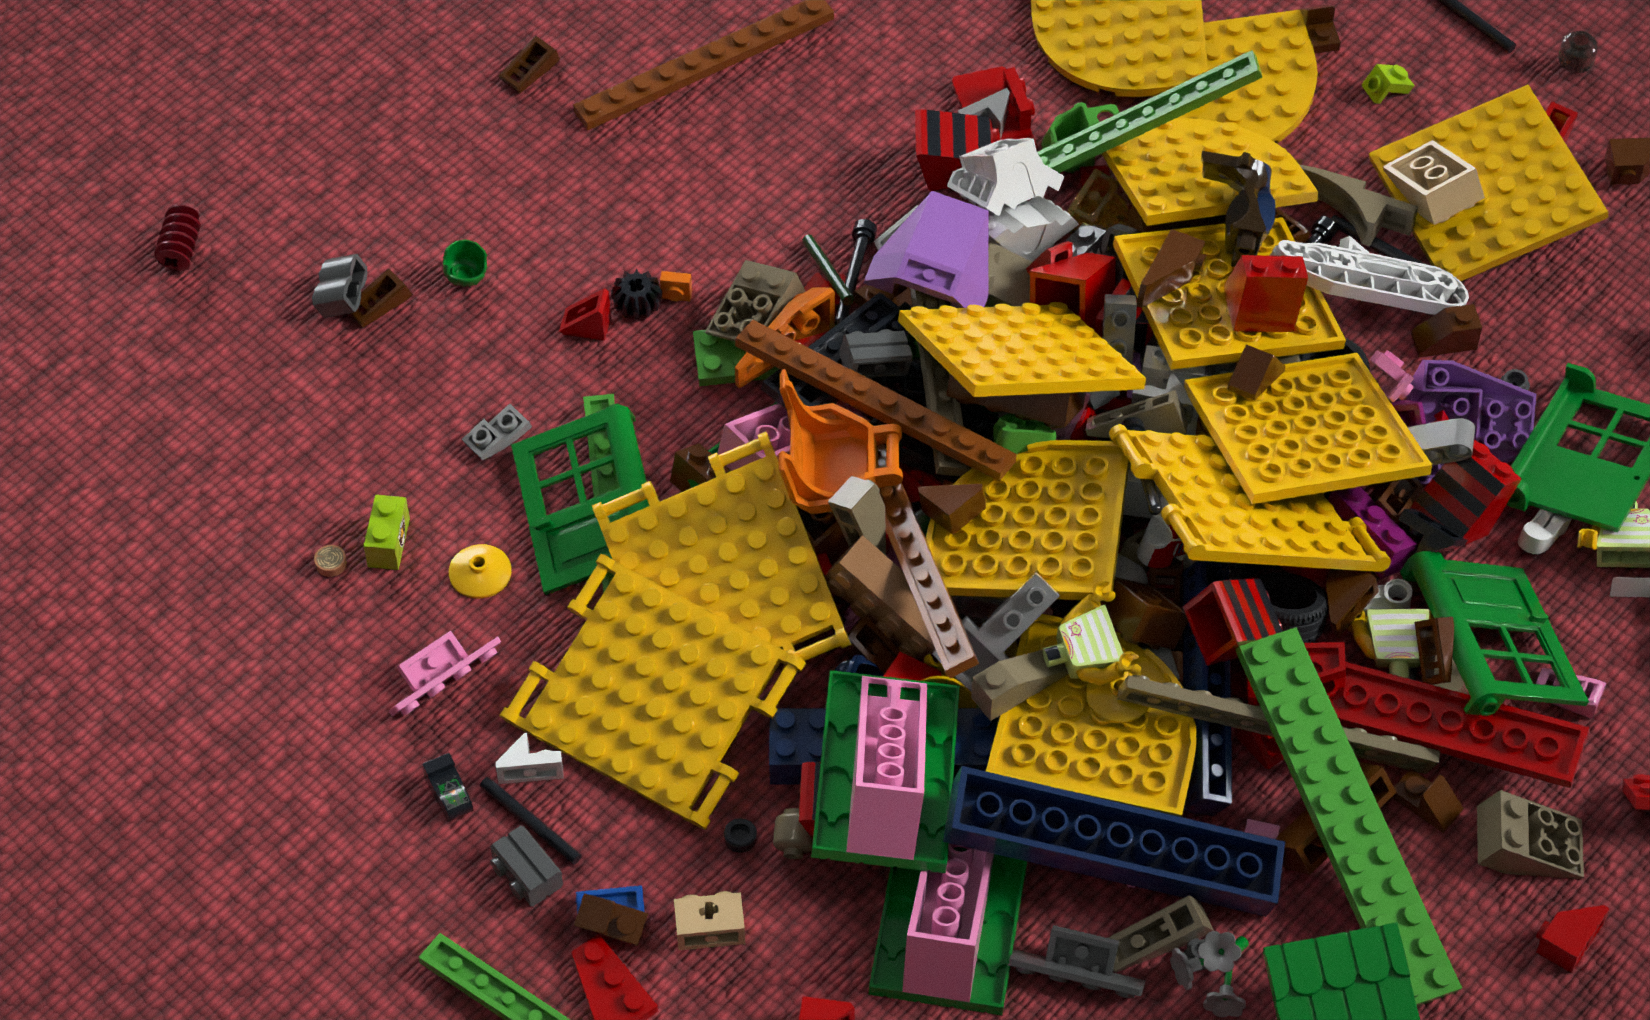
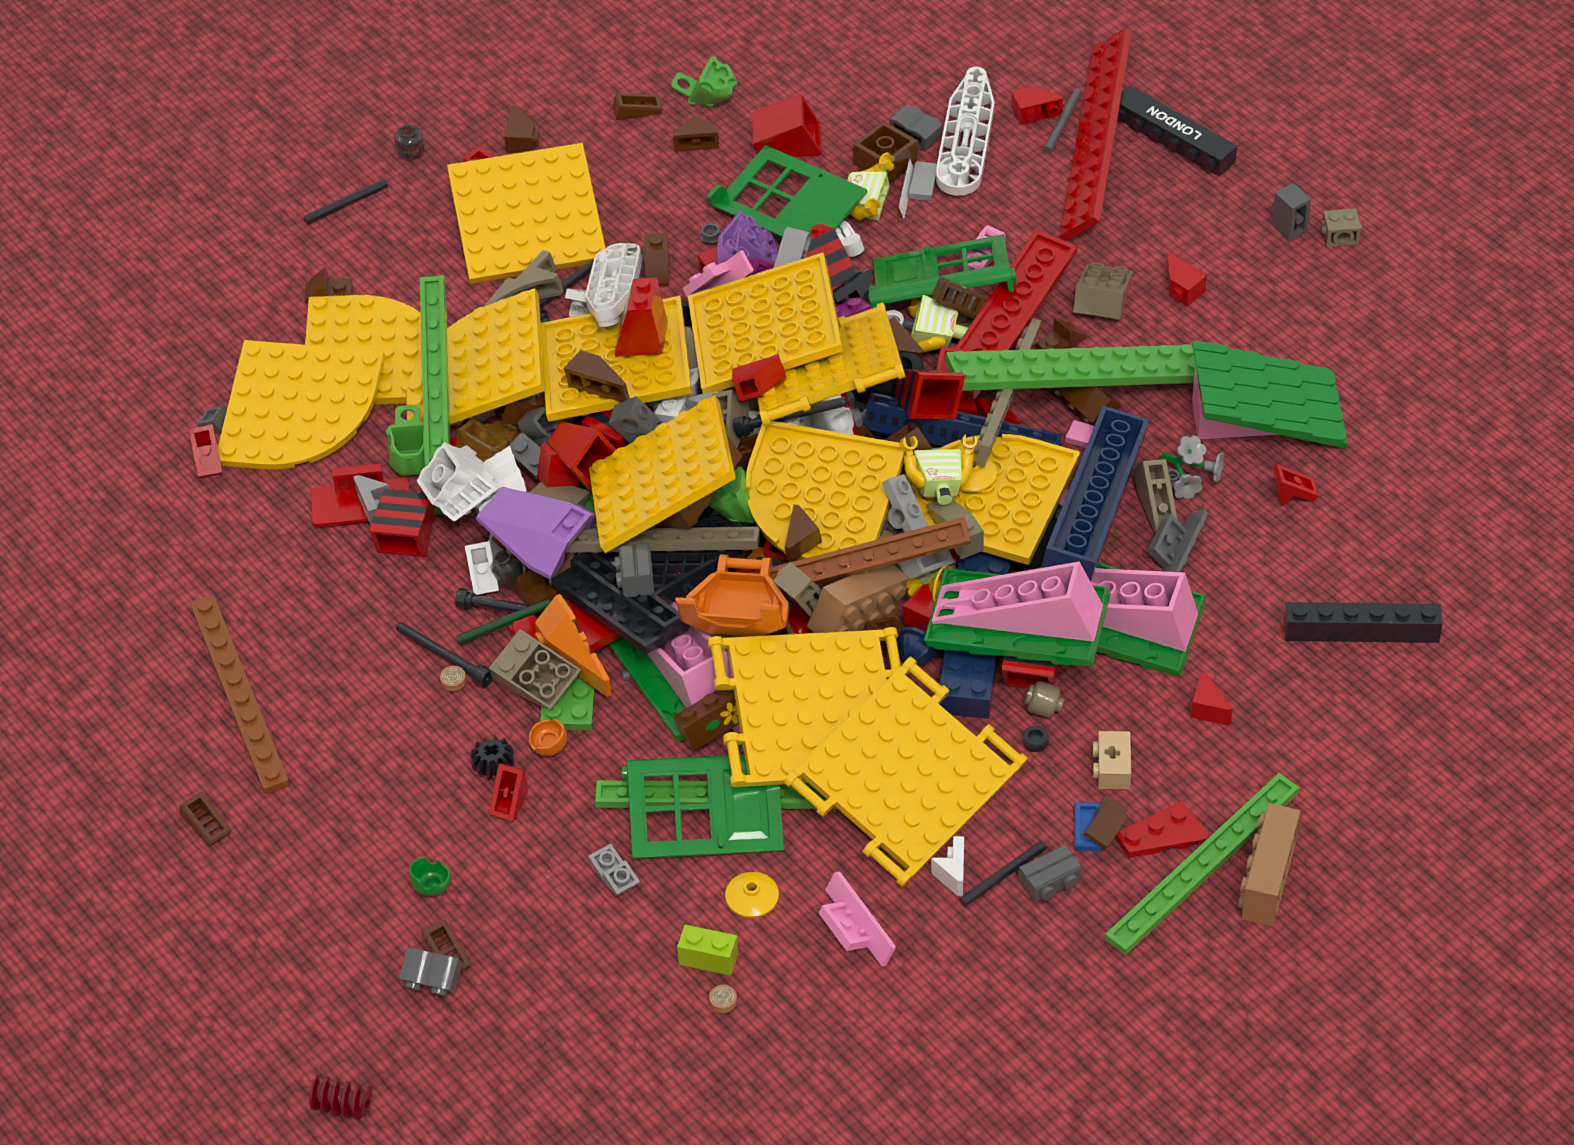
camera: 80 degrees left, 5 degrees down
(447, 787) = (968, 923): black leg -> none
(669, 339) = (548, 737): none -> orange hair
(676, 286) = (491, 726): orange plate -> none
(750, 243) = (453, 678): none -> tile
(788, 223) = (480, 674): none -> black piece
(876, 400) = (682, 574): dark orange plate -> none
(1191, 421) = (758, 377): none -> red slope
(1253, 209) = (563, 324): dark brown hips -> none
(1254, 372) = (709, 344): reddish brown slope -> none
(1385, 80) = (401, 258): lime bracket -> none
(1435, 181) = (522, 234): tan slope -> none

